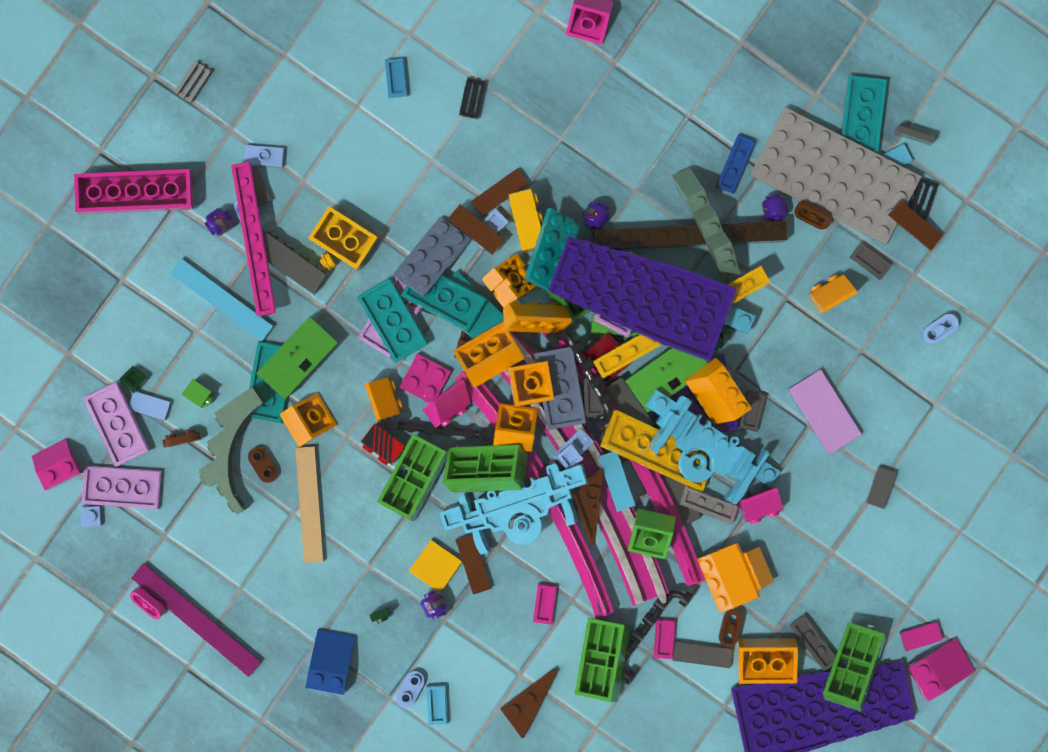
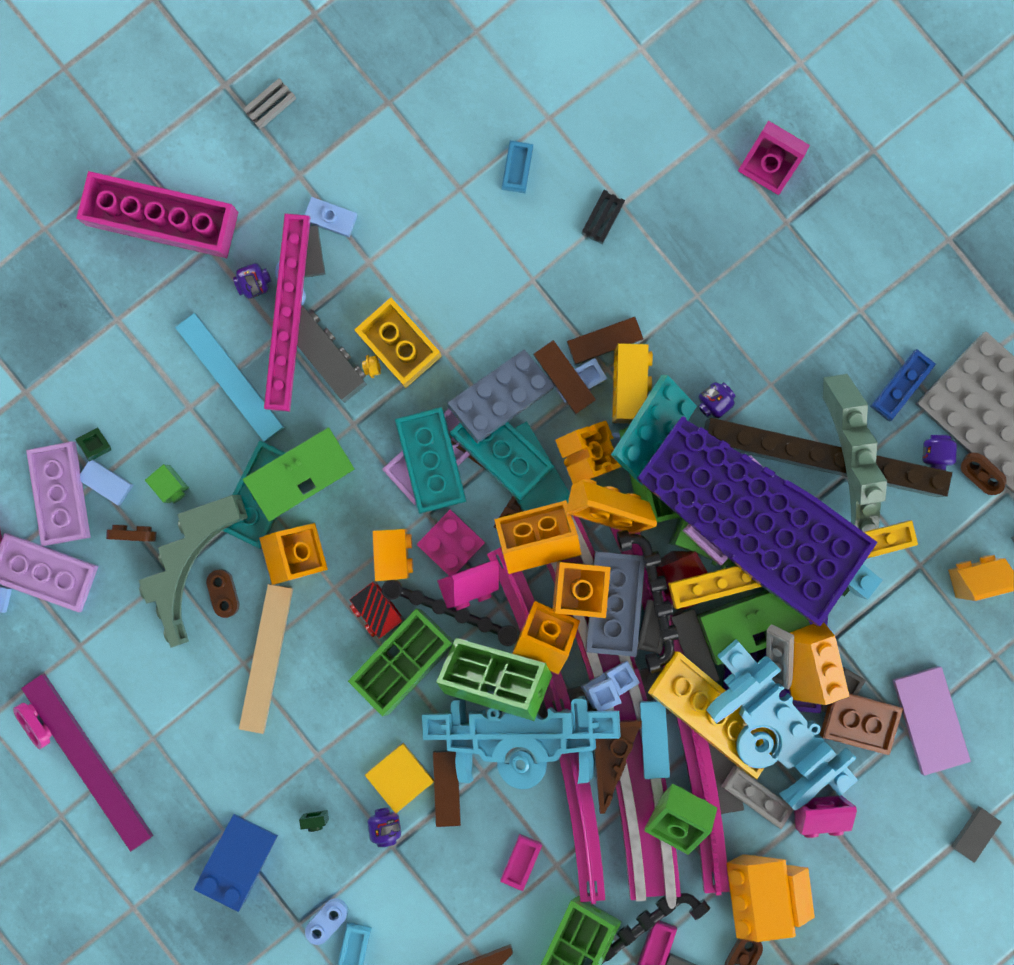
camera: 15 degrees right, 0 degrees up
(689, 388) = (781, 651): none -> light grey tile
(771, 427) = (862, 723): none -> tile

